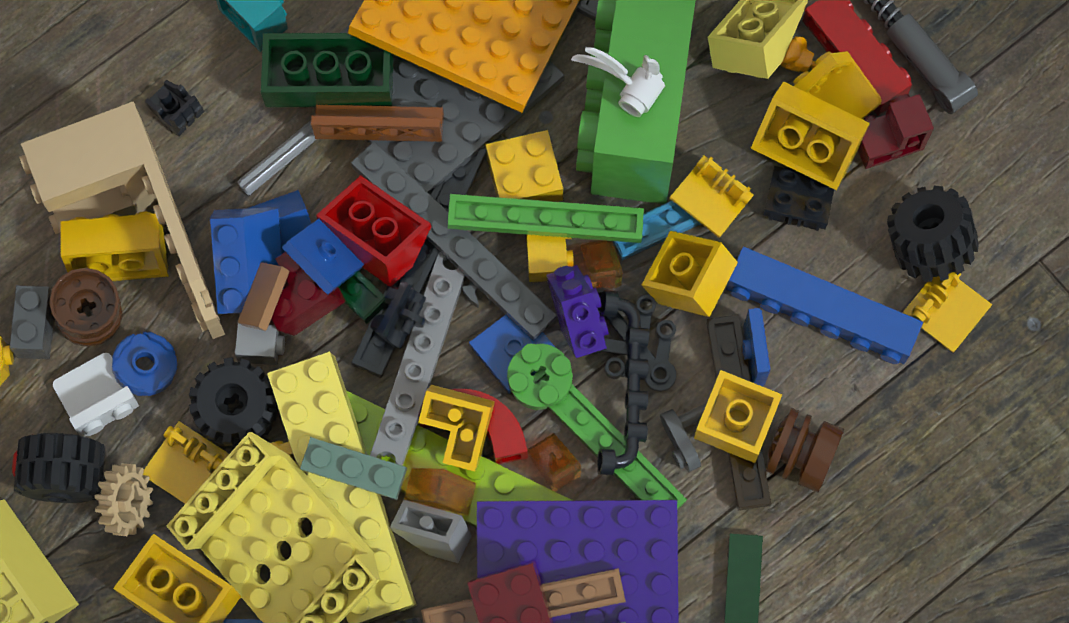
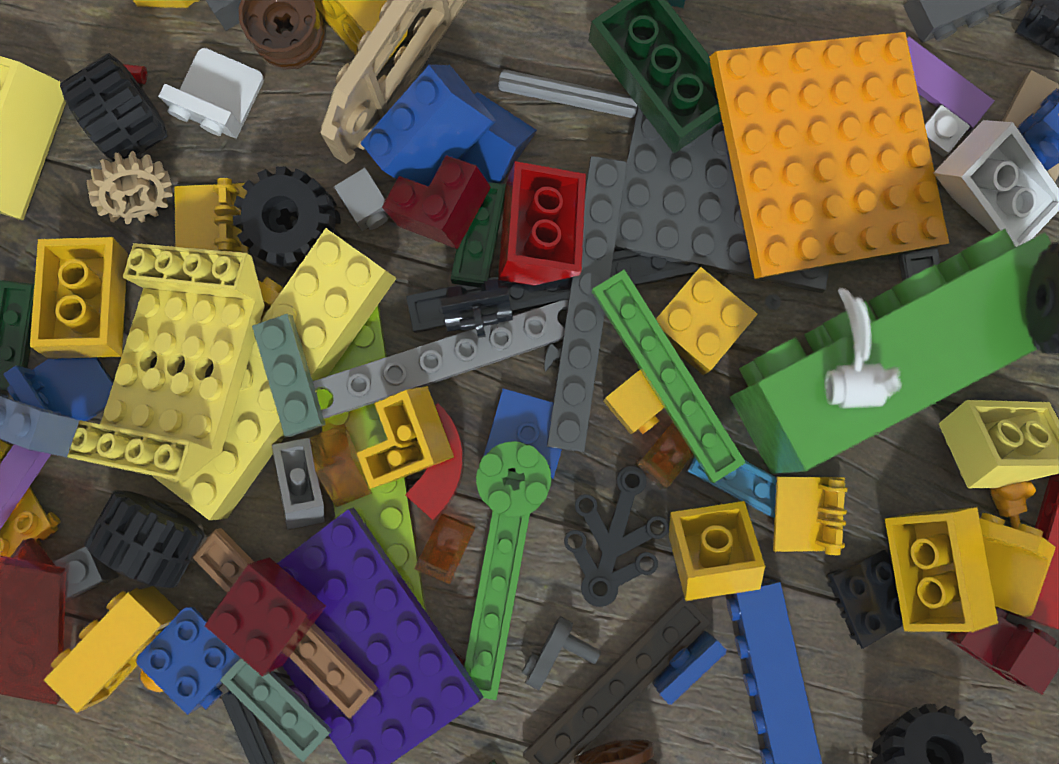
camera: 55 degrees right, 10 degrees up
(144, 381) = (275, 135): blue tile -> none
(263, 296) = (400, 171): medium nougat tile -> none
(323, 256) = (475, 196): blue plate -> none
(378, 123) = (647, 152): dark orange fence -> none
(577, 310) = (599, 472): dark purple brick -> none
(634, 397) = (556, 583): black bar -> none
(737, 416) = (605, 701): yellow brick -> none

